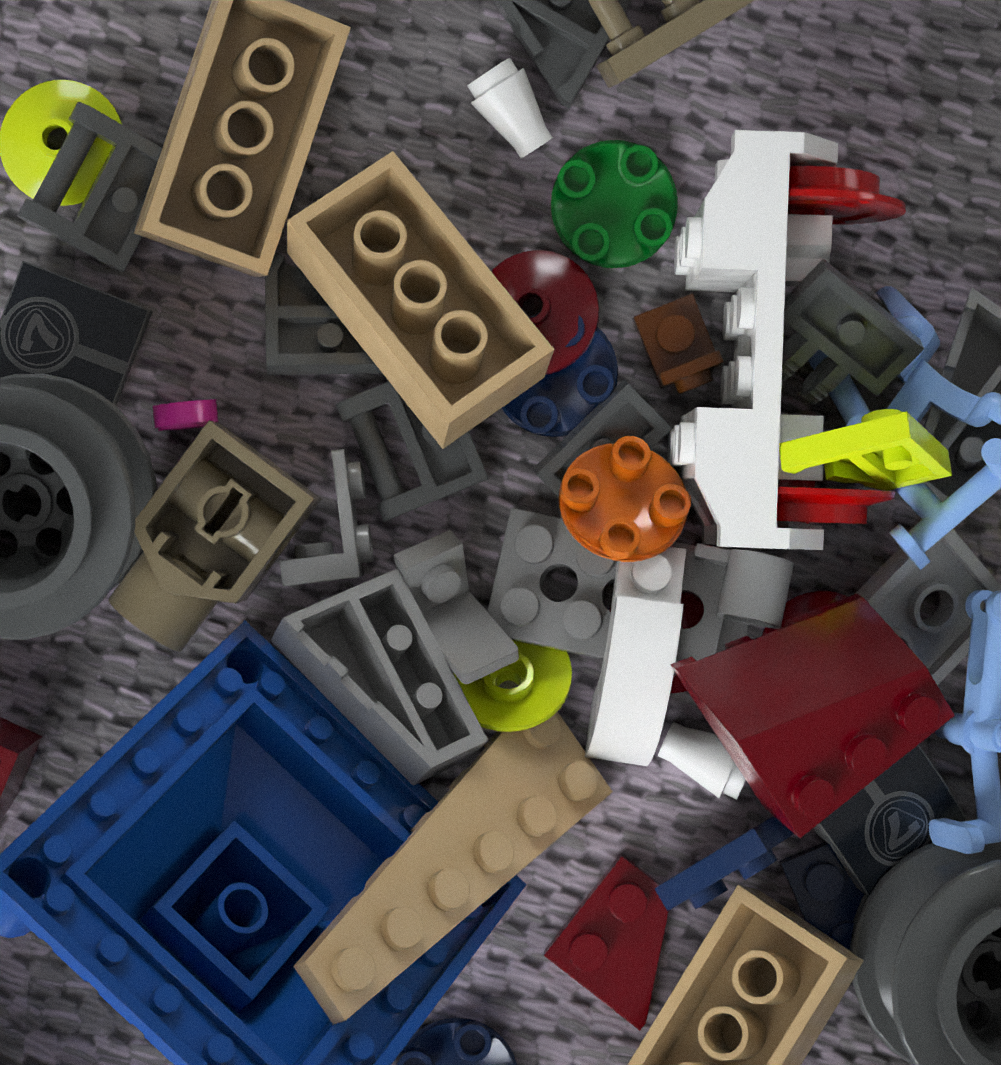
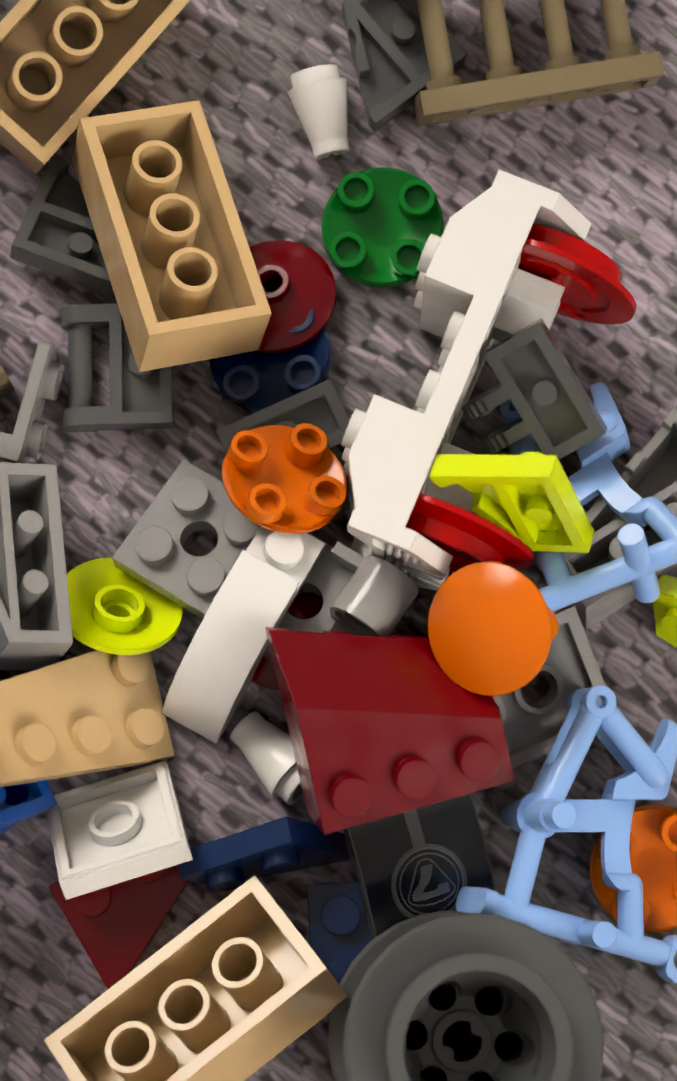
camera: 25 degrees right, 10 degrees down
(459, 623) = (88, 505): light grey bracket -> none
(592, 887) = (117, 830): none -> white plate
(678, 344) = (393, 365): reddish brown bracket -> none
(888, 588) = (490, 628): none -> orange dish

